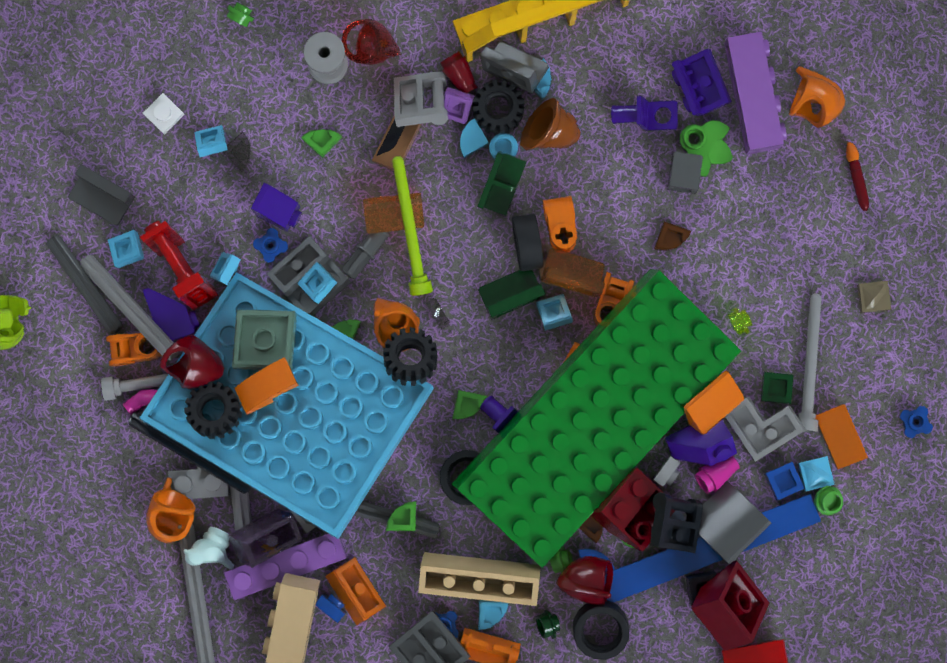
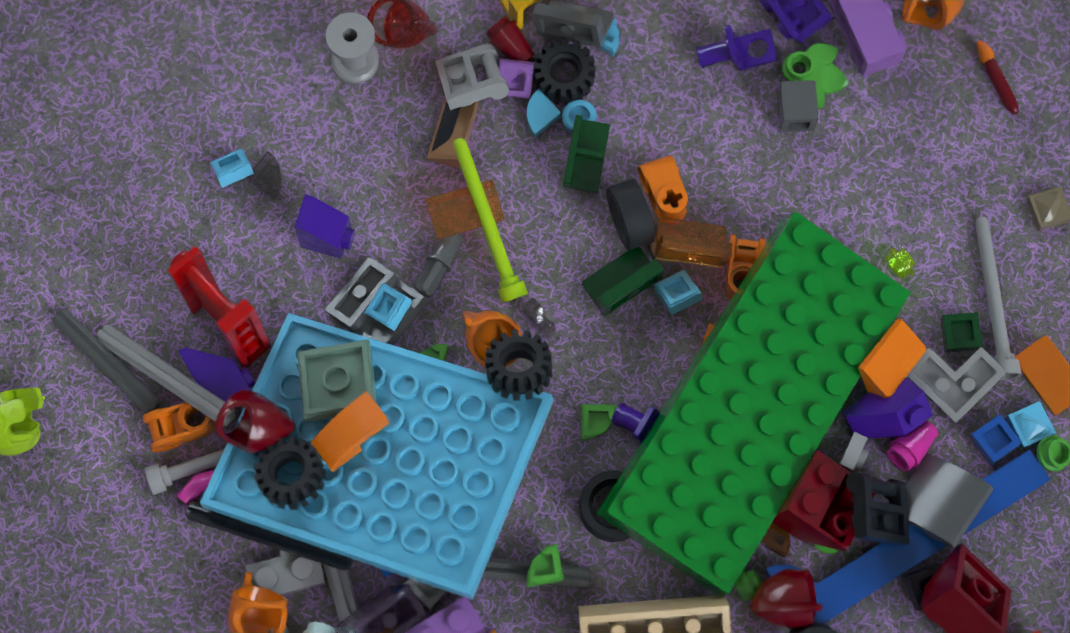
camera: 10 degrees left, 10 degrees down
(100, 195) = (110, 253): dark grey panel -> none
(126, 249) = (150, 310): medium azure tile -> none
(163, 113) = (170, 148): white plate -> none
(225, 268) = (274, 310): medium azure tile -> none
(240, 14) = (242, 20): bright green plate -> none
(278, 245) = (326, 285): blue plate -> none
(321, 140) = (363, 146): bright green tile -> none
(550, 127) = (630, 82): dark orange piece -> none
(671, 237) = (797, 183): reddish brown tile -> none

